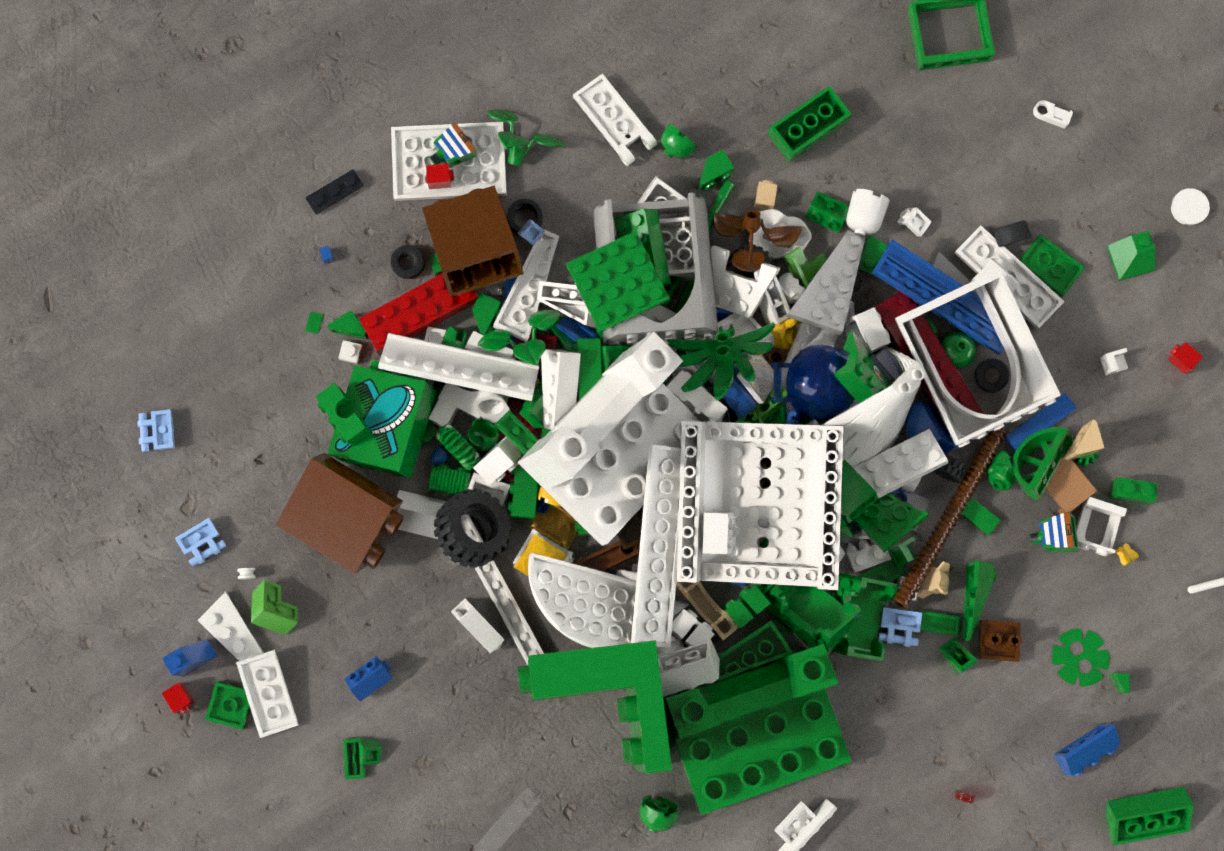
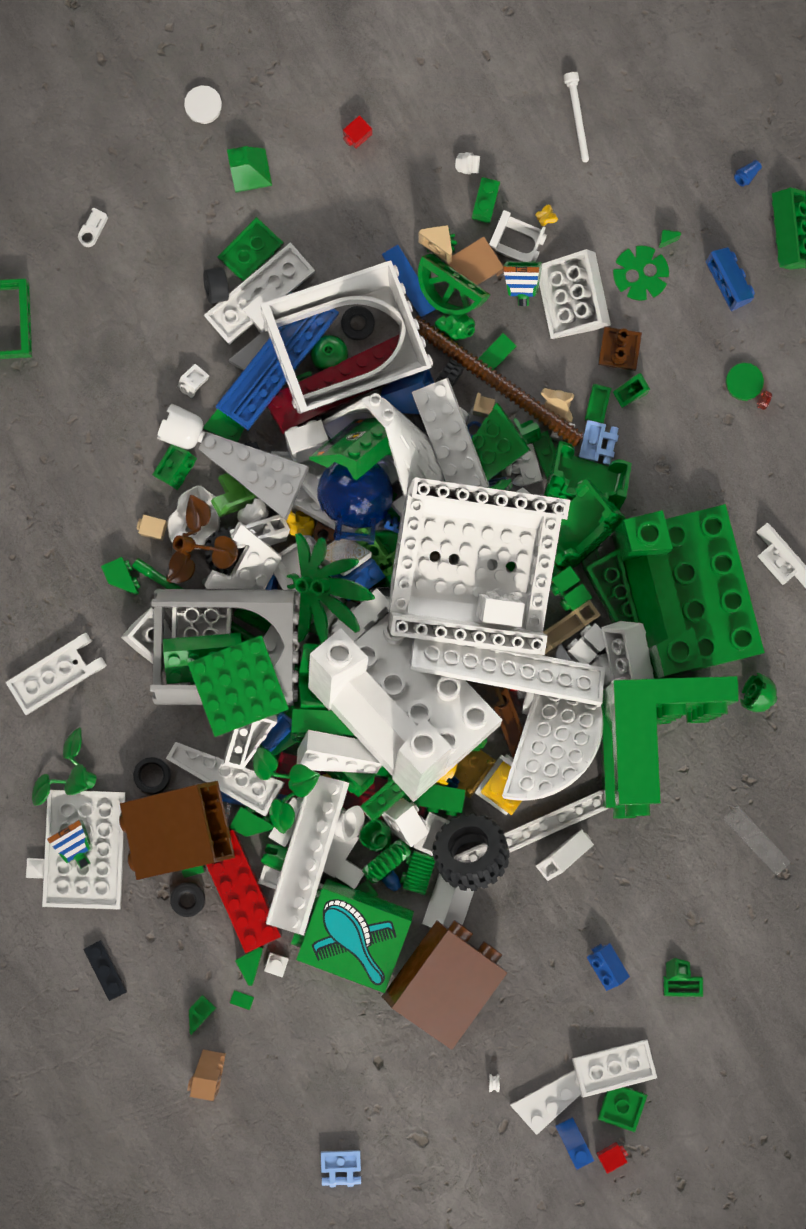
camera: 80 degrees left, 5 degrees up
(197, 537) = (453, 1131): light blue plate -> none
(236, 292) = (207, 1077): none -> medium nougat wedge
(270, 611) = (533, 1061): bright green panel -> none
(299, 283) = (199, 1013): none -> green tile
(326, 254) = (172, 982): blue piece -> none
(332, 402) = (334, 984): green arch -> none
(427, 117) = (35, 868): none -> white tile
(439, 176) = (102, 859): red brick -> none
(531, 232) = (170, 769): light blue tile -> none
(677, 143) = (88, 612): green cylinder -> none
(809, 124) = (81, 475): green brick -> none
(855, 493) = (471, 471): green slope -> none
(924, 503) = (483, 406): none -> tan panel
(977, 588) = (566, 362): green wedge -> none
(981, 774) = (744, 381): none -> green tile
(1049, 588) = (573, 295): none -> white slope
(1114, 361) = (355, 201): white panel -> none
(1169, 469) = (467, 163): none -> white piece
(1200, 759) = (747, 173): none -> blue cone

